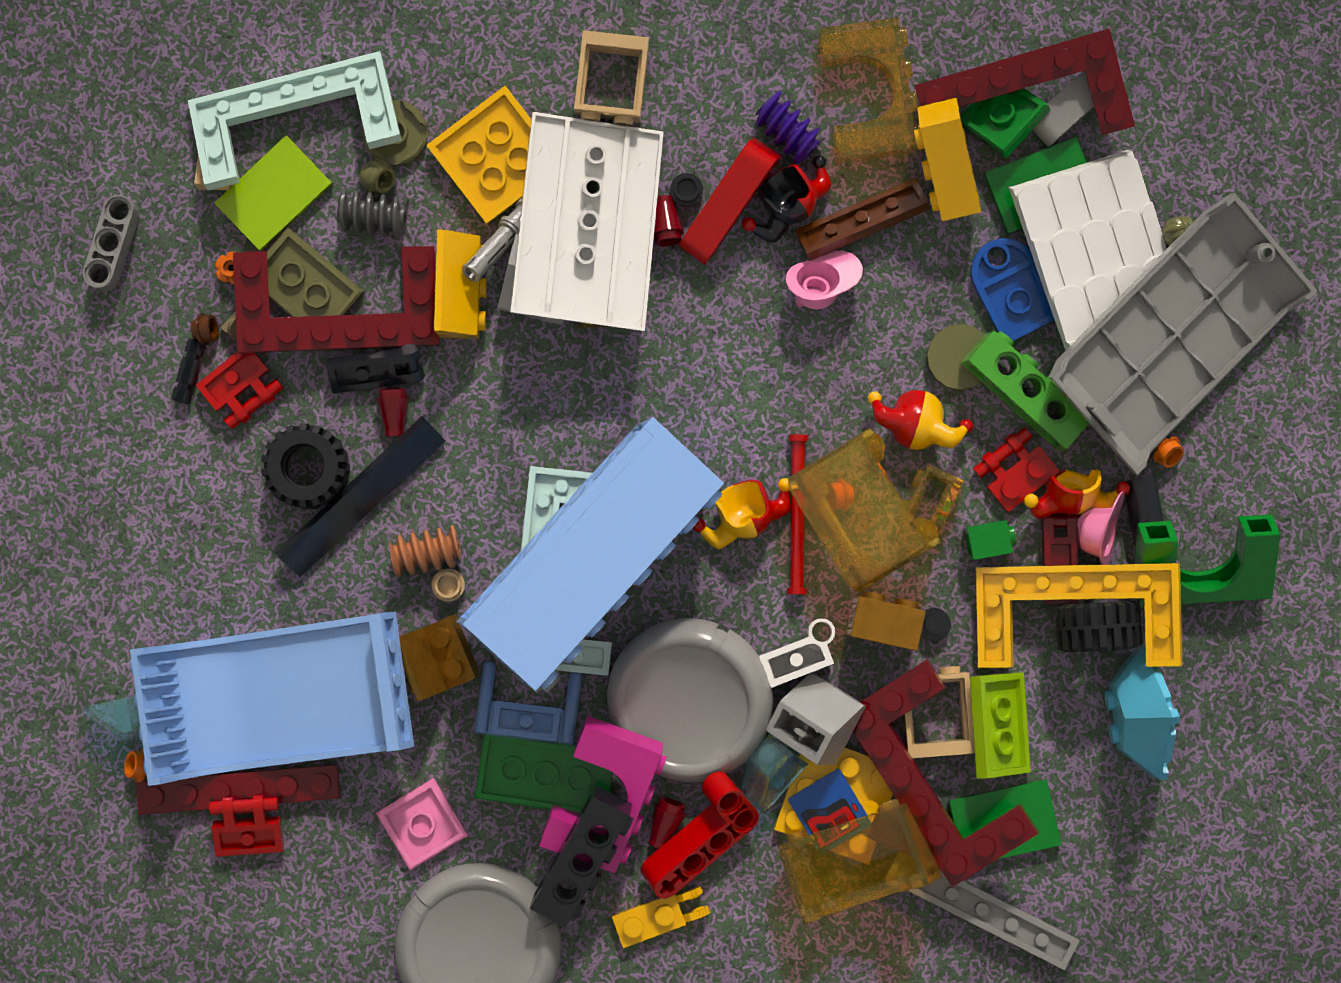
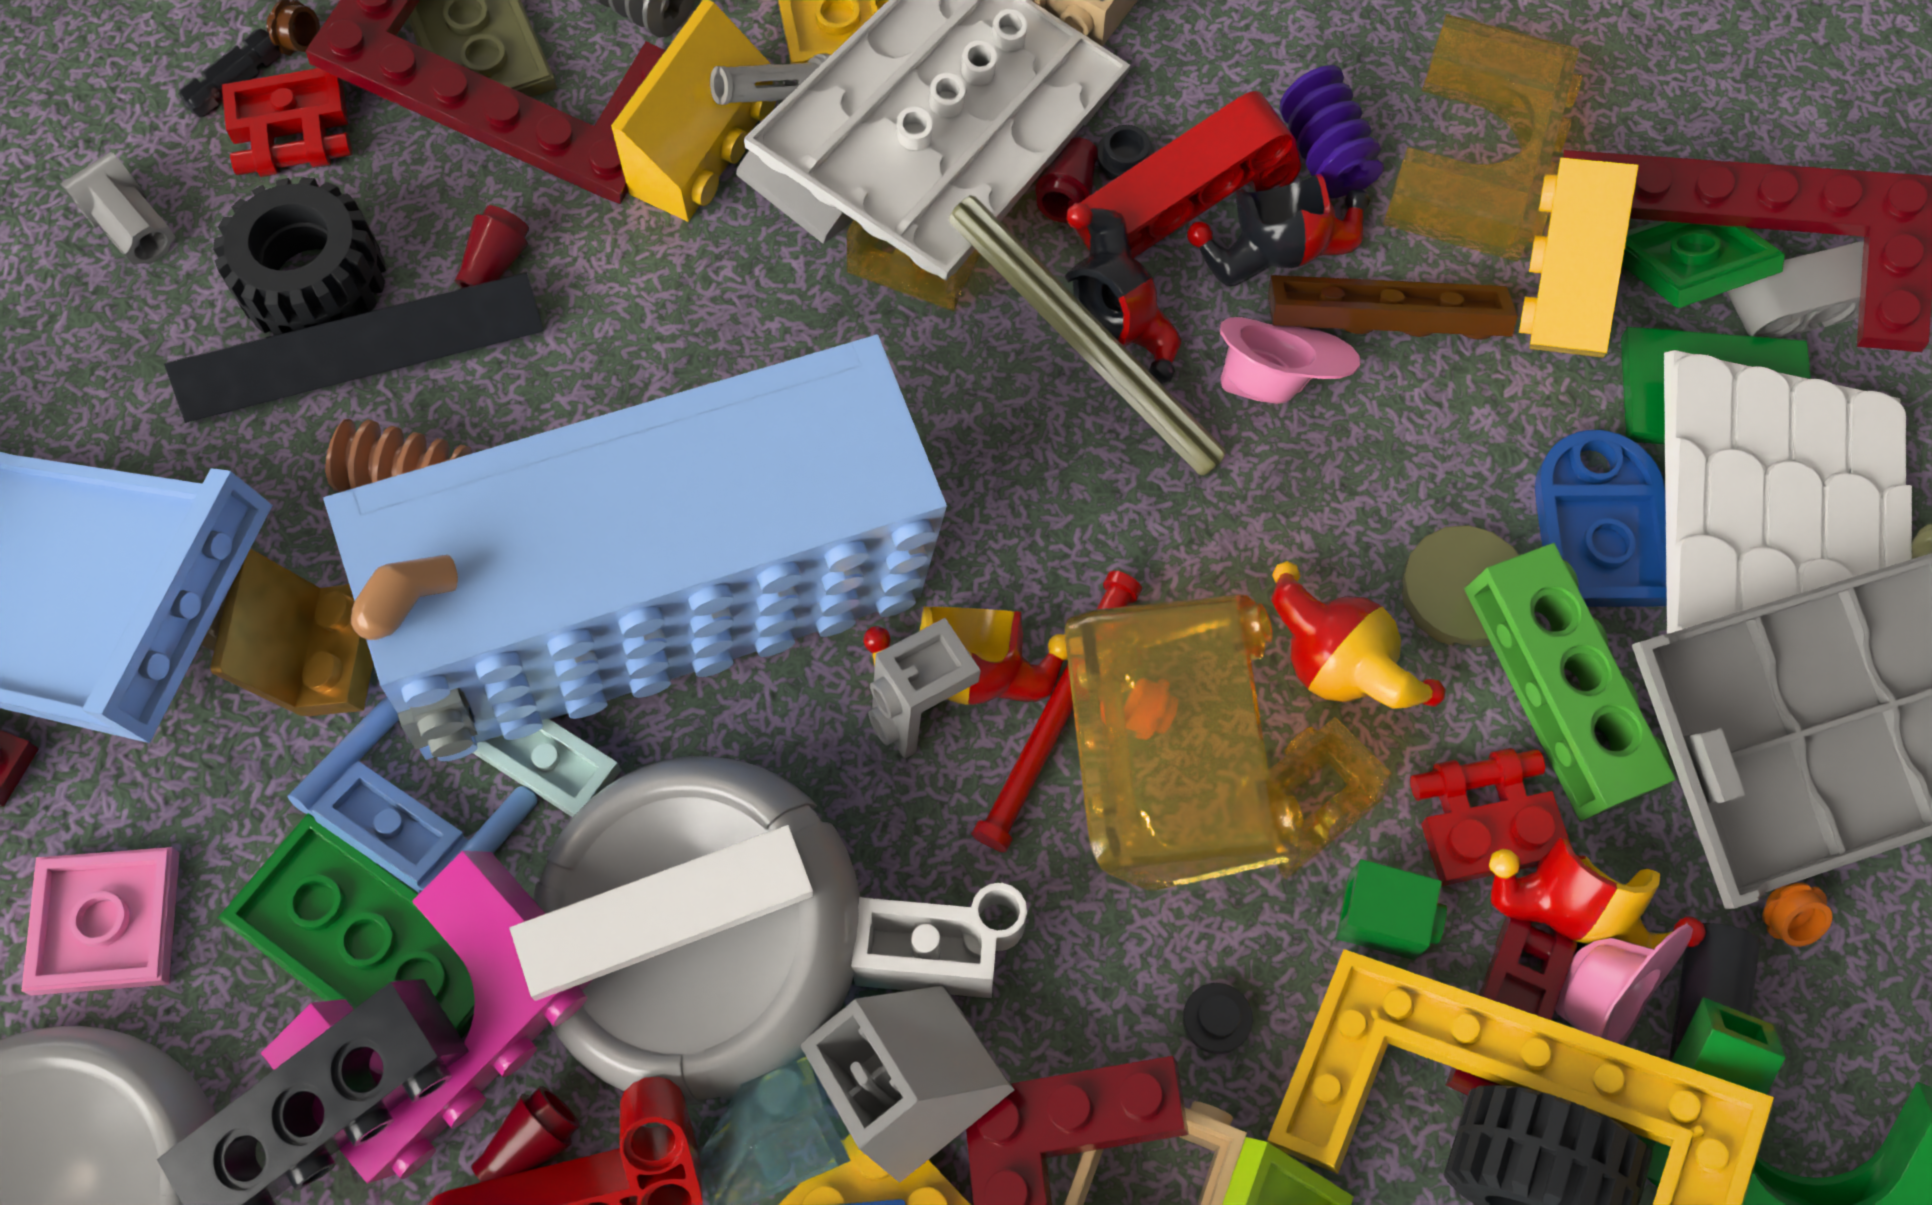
camera: 30 degrees right, 20 degrees down
(182, 478) = (117, 204): none -> light grey piece
(375, 369) = (497, 178): black plate -> none
(523, 651) = (396, 589): none -> medium nougat arm
(685, 710) = (660, 912): none -> white tile
(723, 321) = (1086, 335): none -> olive axle
(727, 284) = (1121, 289): none -> black piece
(735, 543) = (915, 678): none -> light grey bracket
(886, 622) = (1128, 954): pearl gold brick -> none

